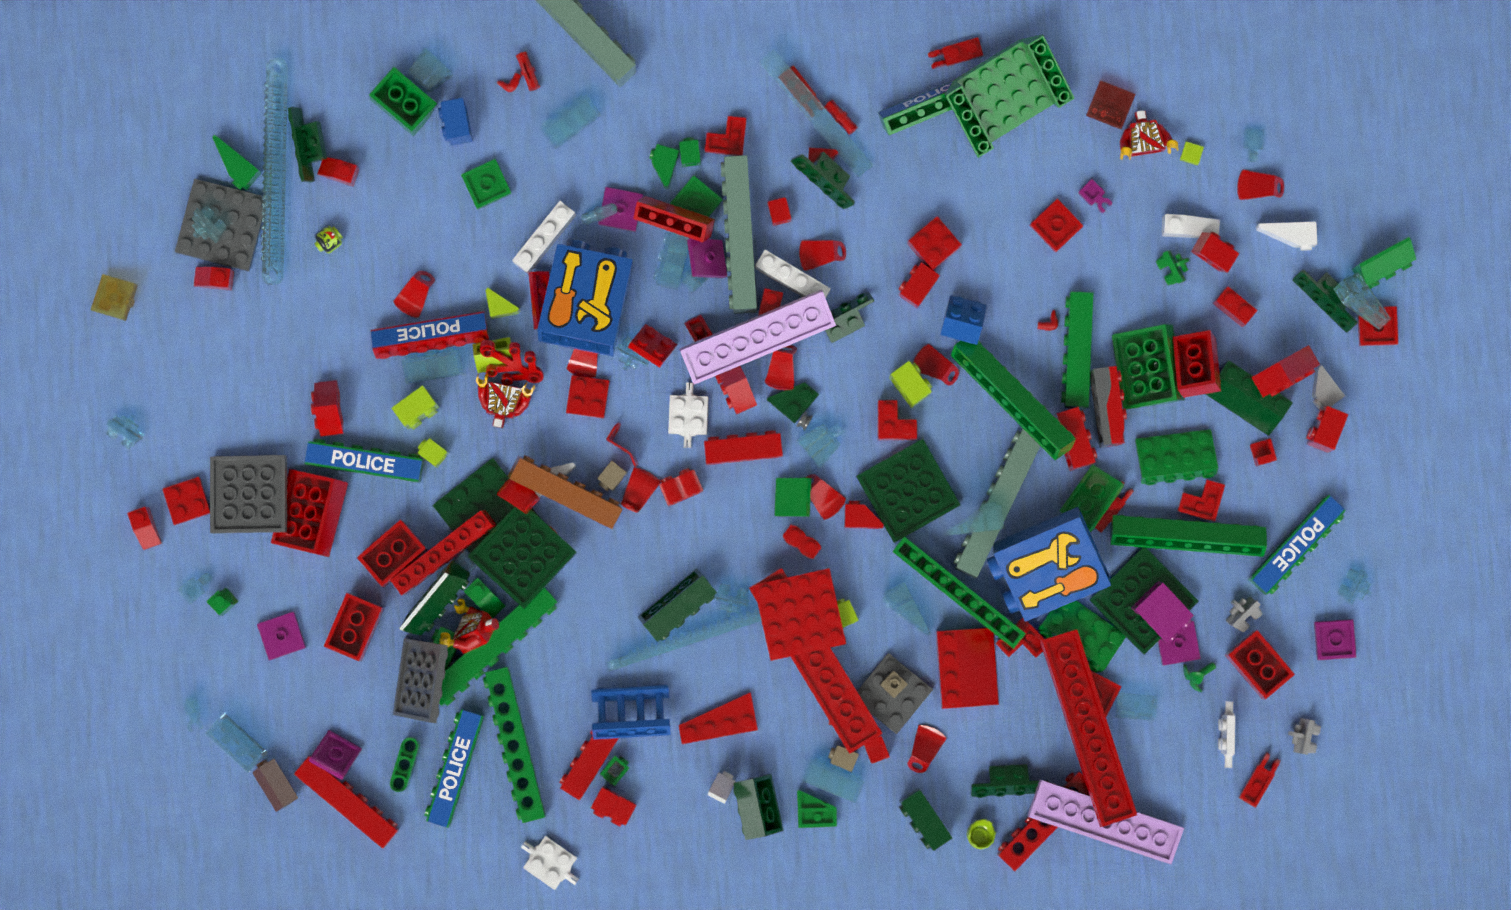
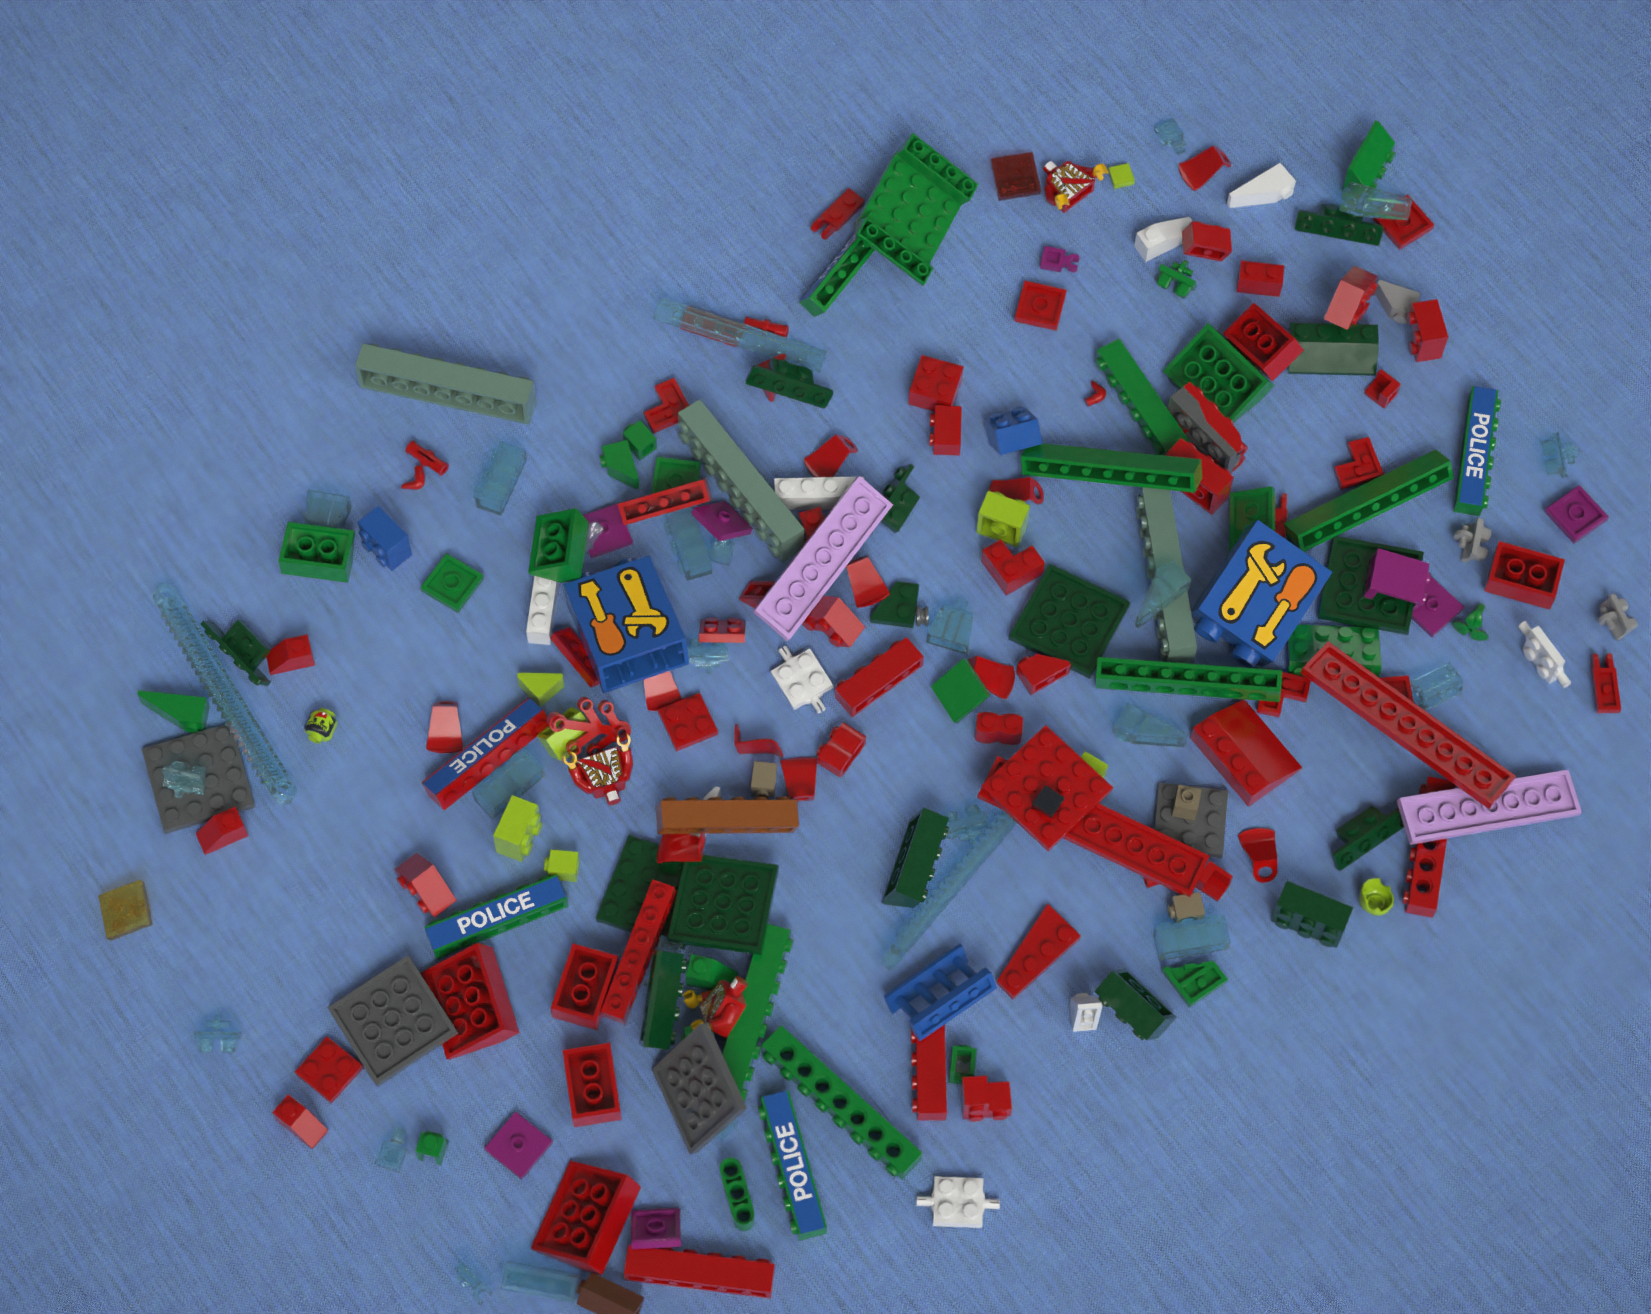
camera: 30 degrees left, 20 degrees down
(295, 716) = (586, 1217): none -> red slope
(573, 210) = (559, 546): none -> green slope
(779, 211) = (764, 442): red panel -> none
(790, 628) = (1048, 801): none -> black tile
(1176, 457) = (1305, 440): green bracket -> none

